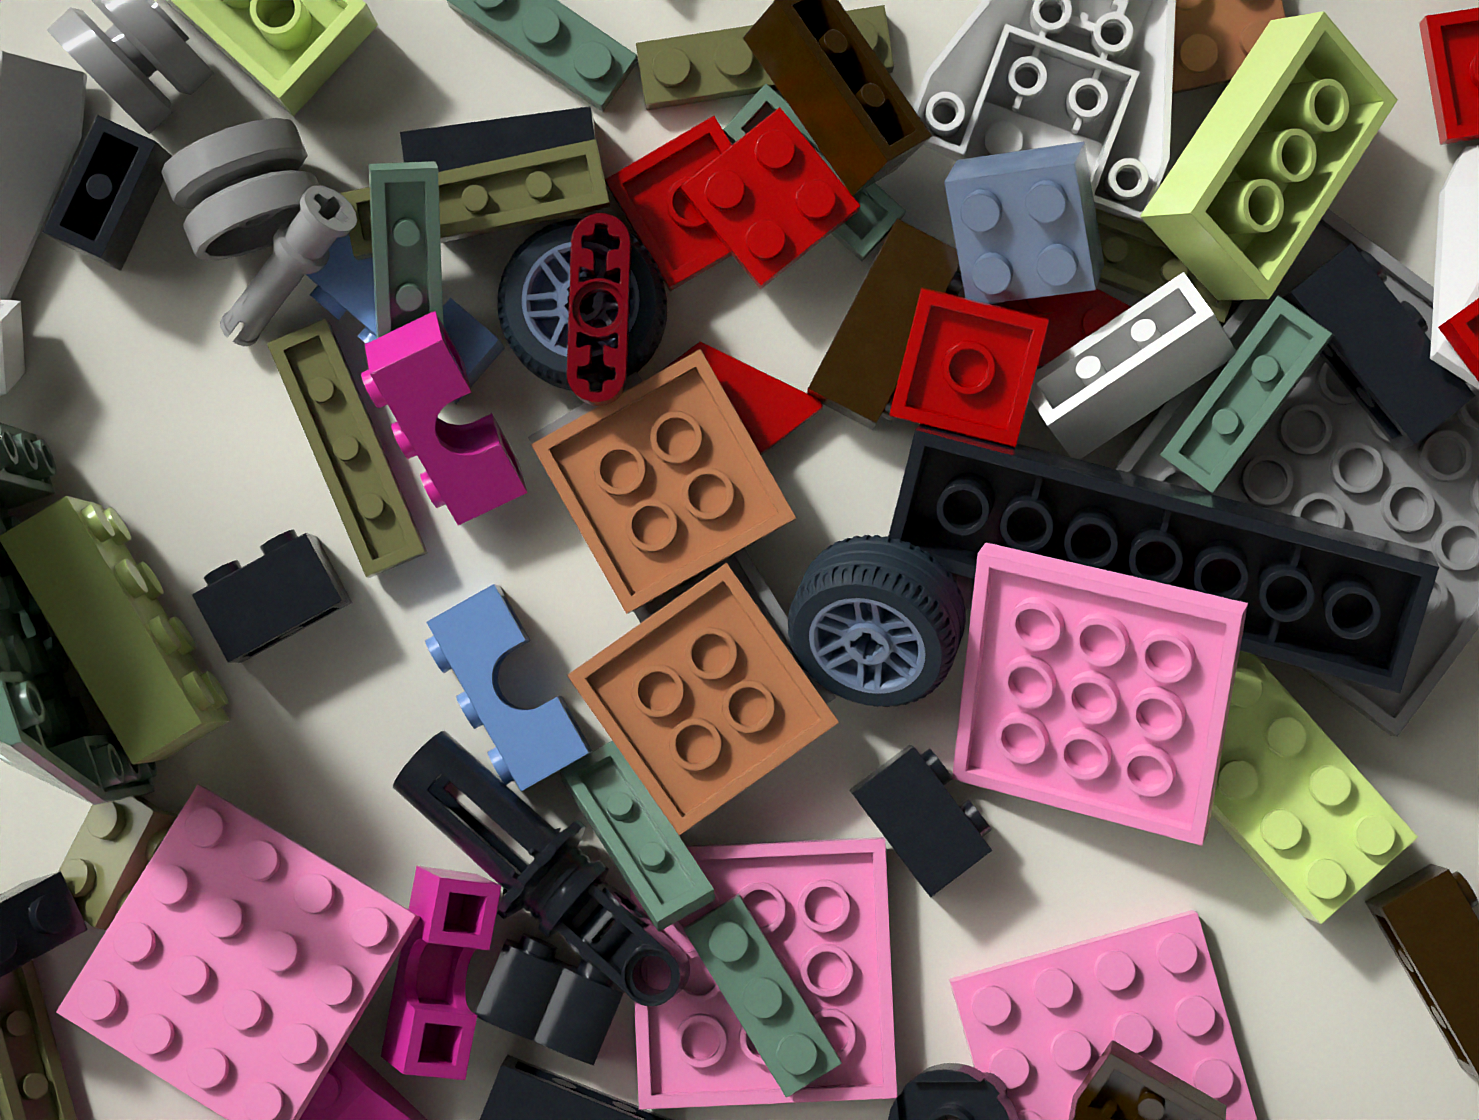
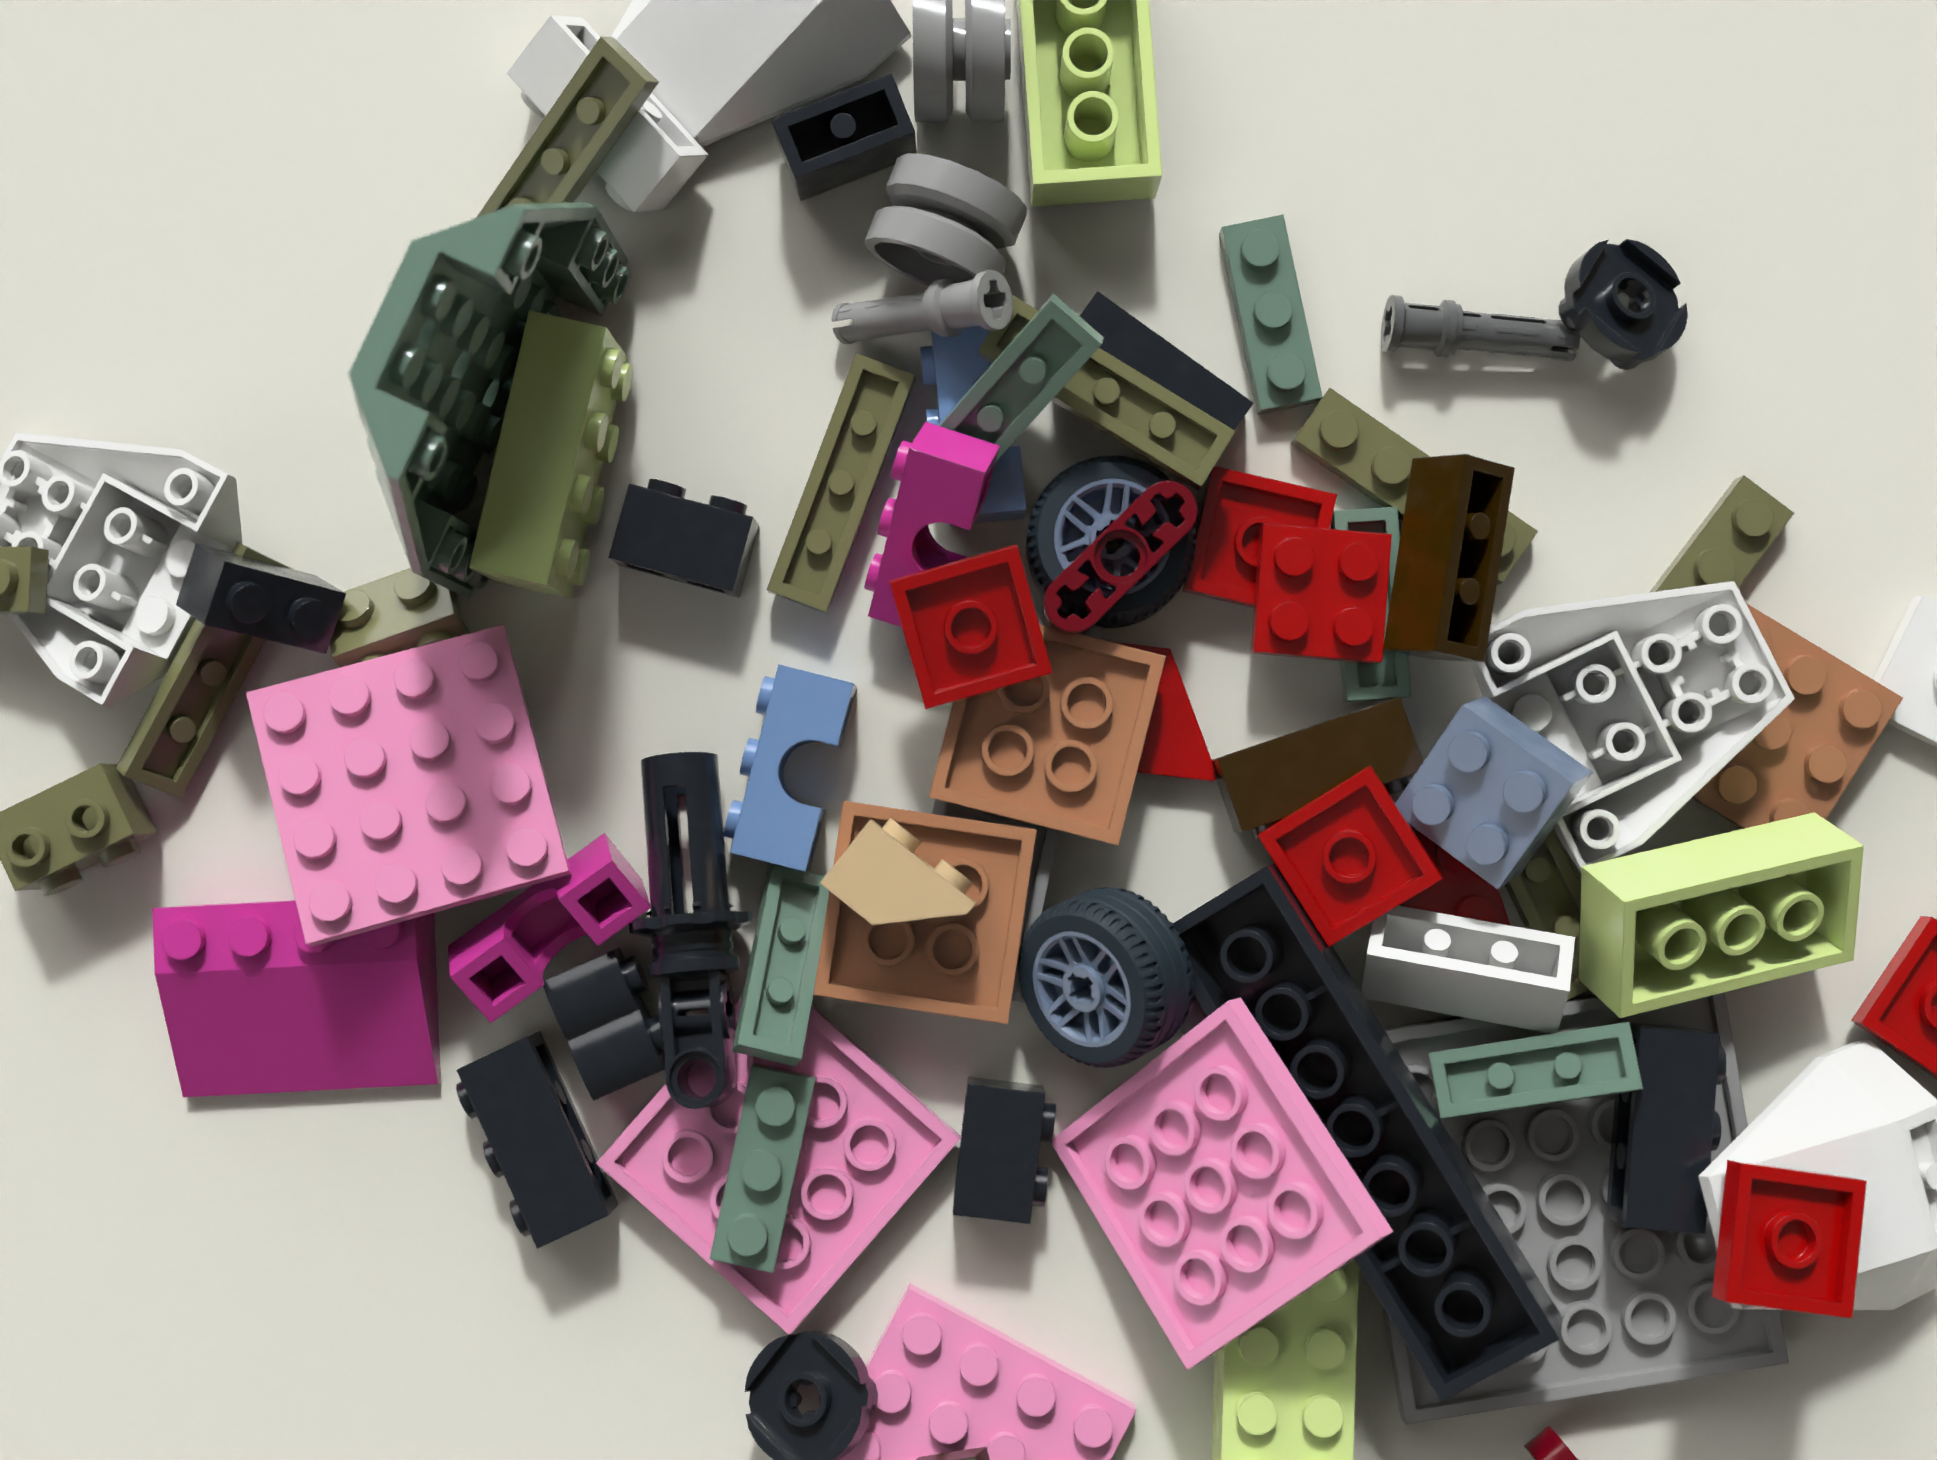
camera: 40 degrees right, 0 degrees up
(538, 461) = (970, 626): none -> red plate
(657, 700) = (891, 883): none -> tan slope

